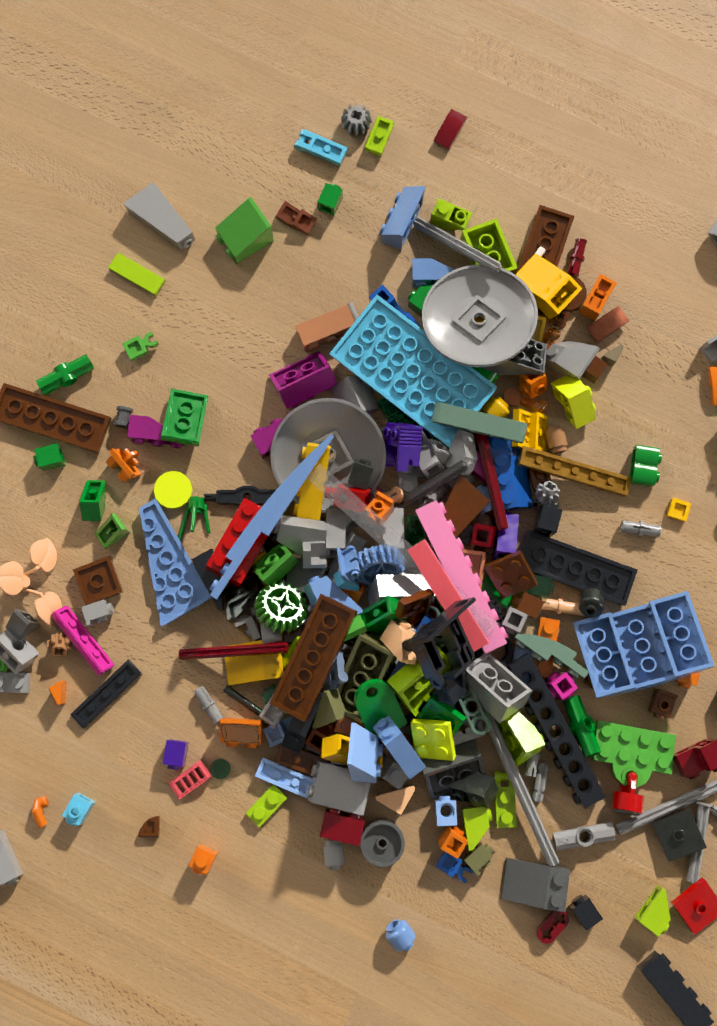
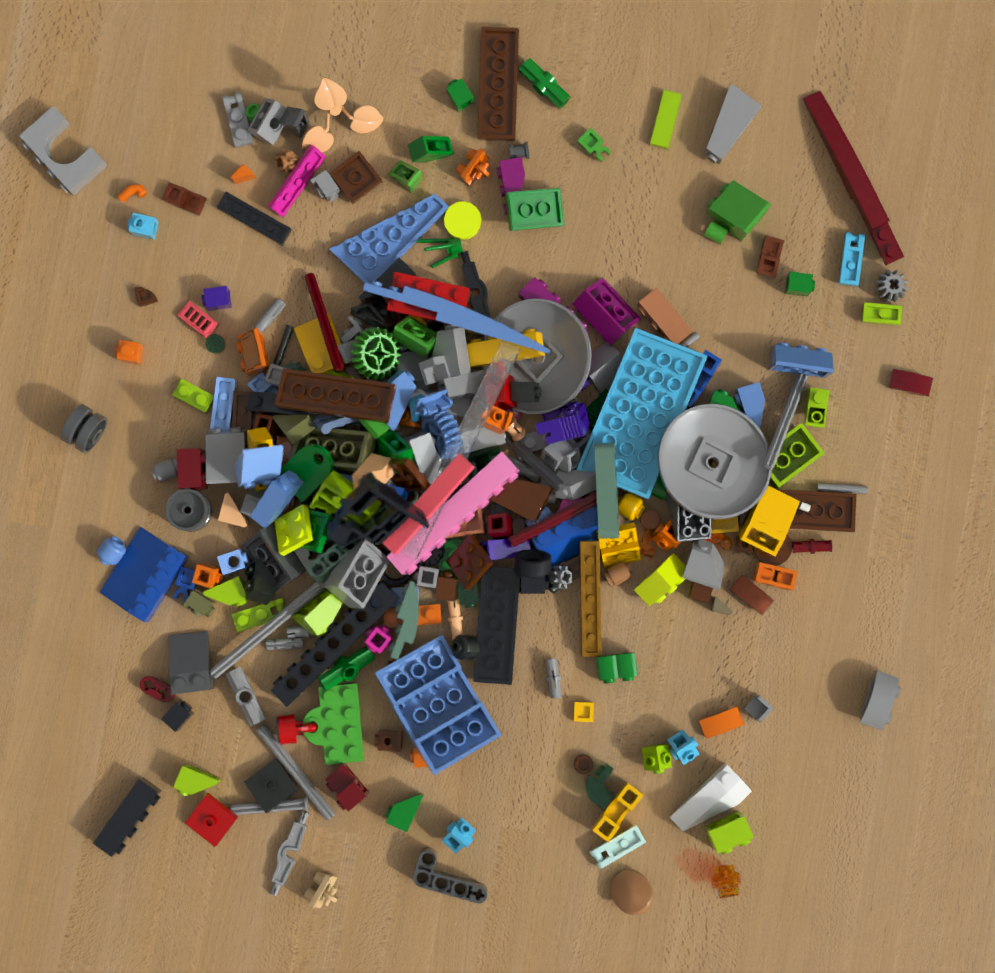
camera: 75 degrees right, 5 degrees up
(64, 759) = (184, 199): none -> copper slope
(245, 123) = (854, 177): none -> dark red slope
(258, 258) = (716, 232): none -> bright green beam
(268, 929) = (83, 428): none -> dark grey wheel
(433, 908) = (144, 575): none -> blue slope
(529, 513) = (532, 563): none -> black tyre
(530, 217) = (841, 488): none -> light grey piece

